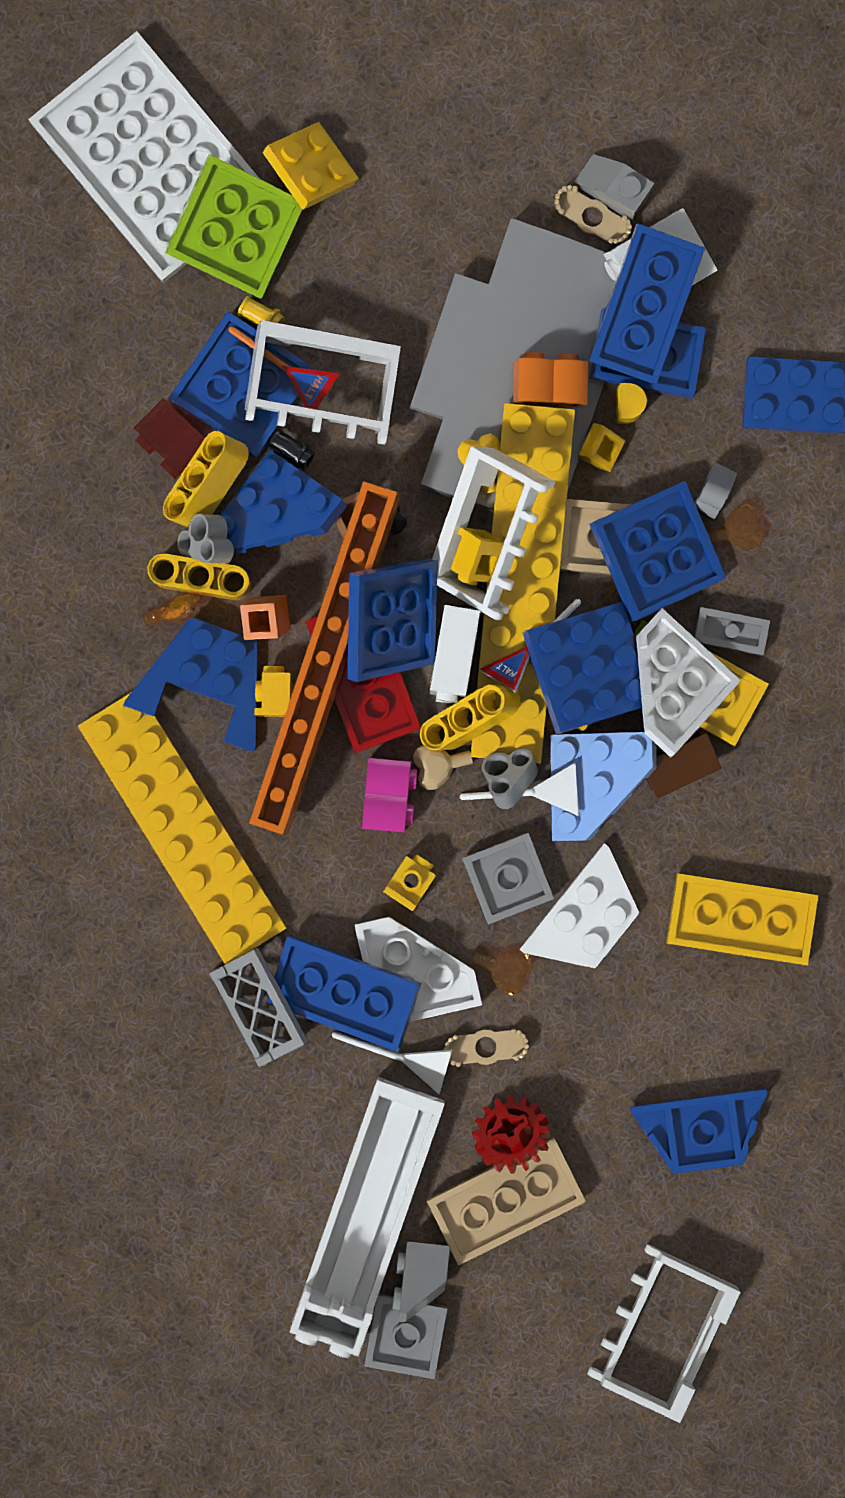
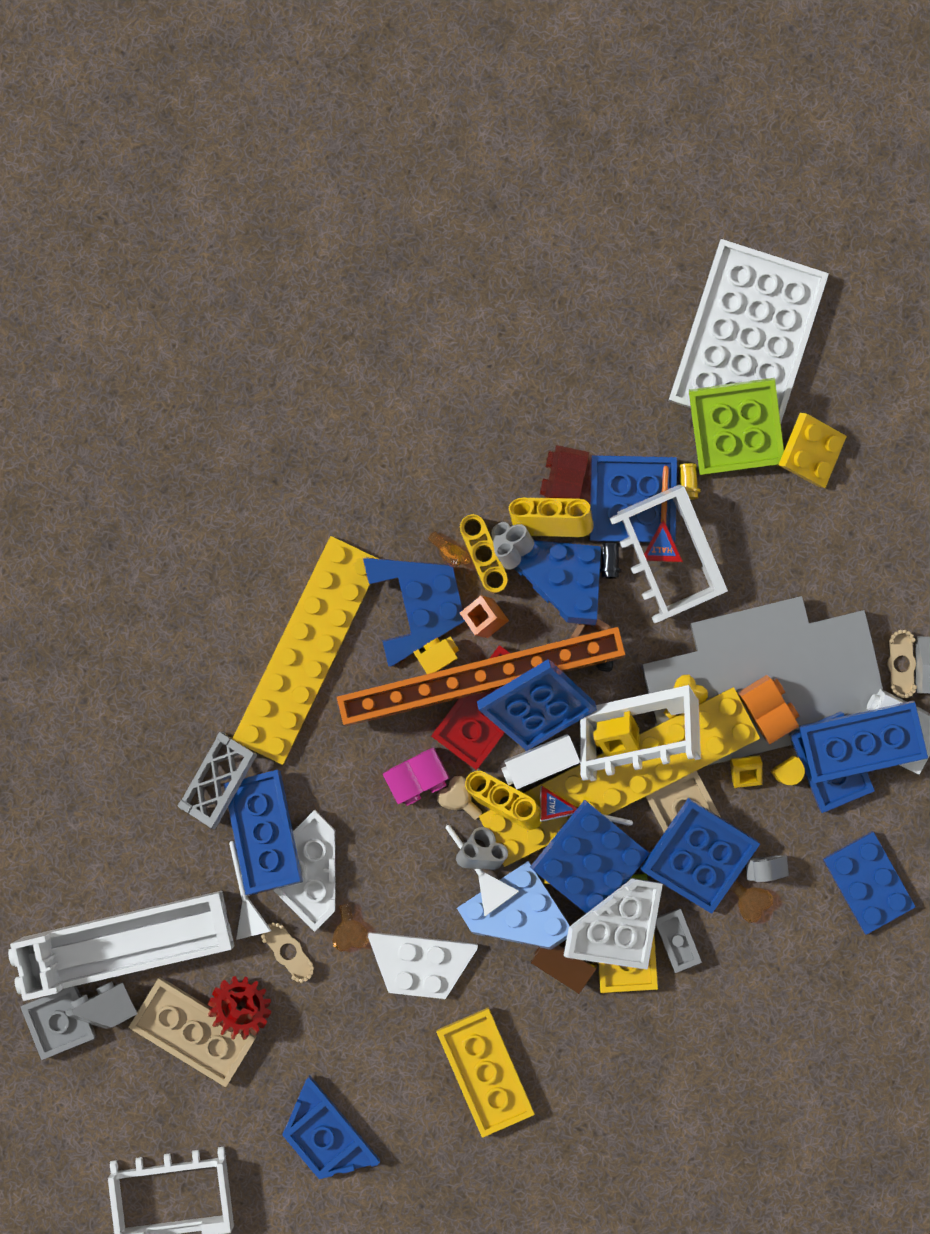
camera: 65 degrees right, 0 degrees up
(400, 891) = (355, 829): yellow brick -> none
(508, 878) = (412, 894): light grey plate -> none

